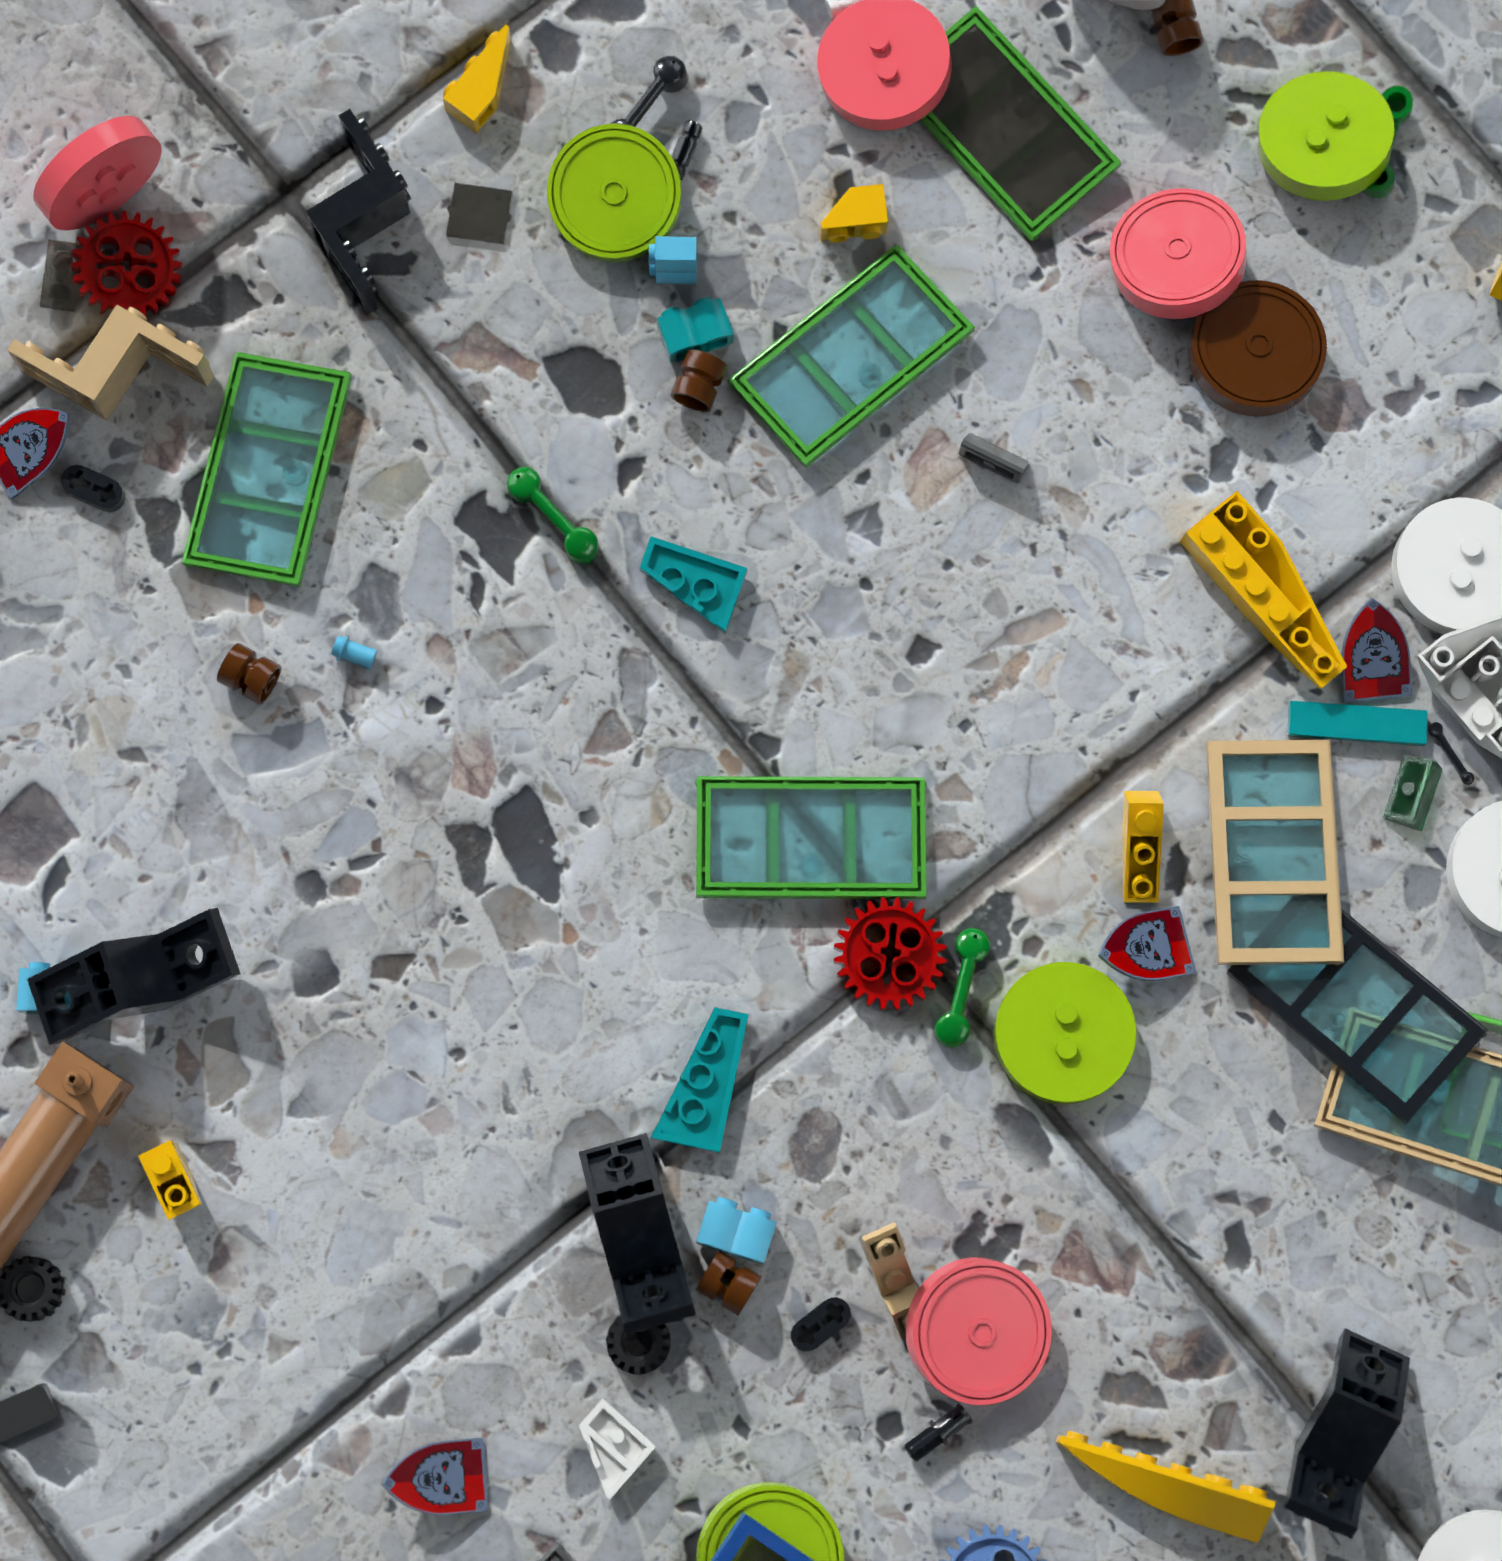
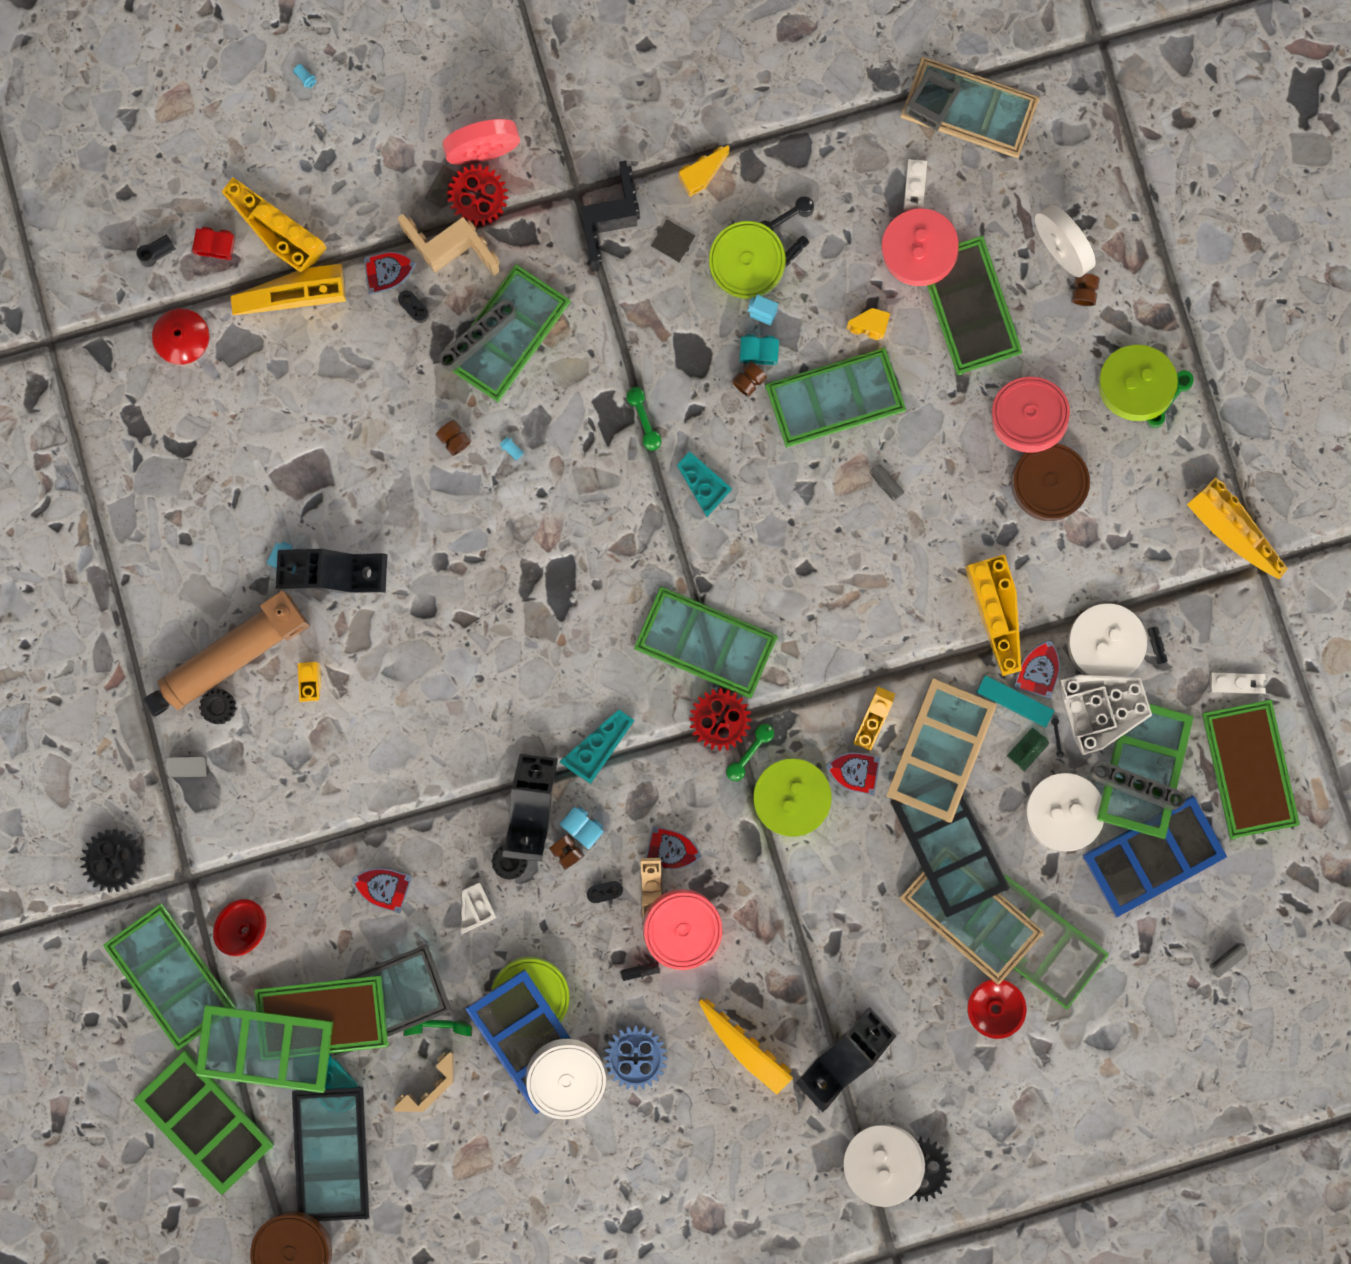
camera: 25 degrees right, 5 degrees up
(220, 474) = (475, 344): none -> dark grey beam
(906, 1197) = (673, 848): none -> shield

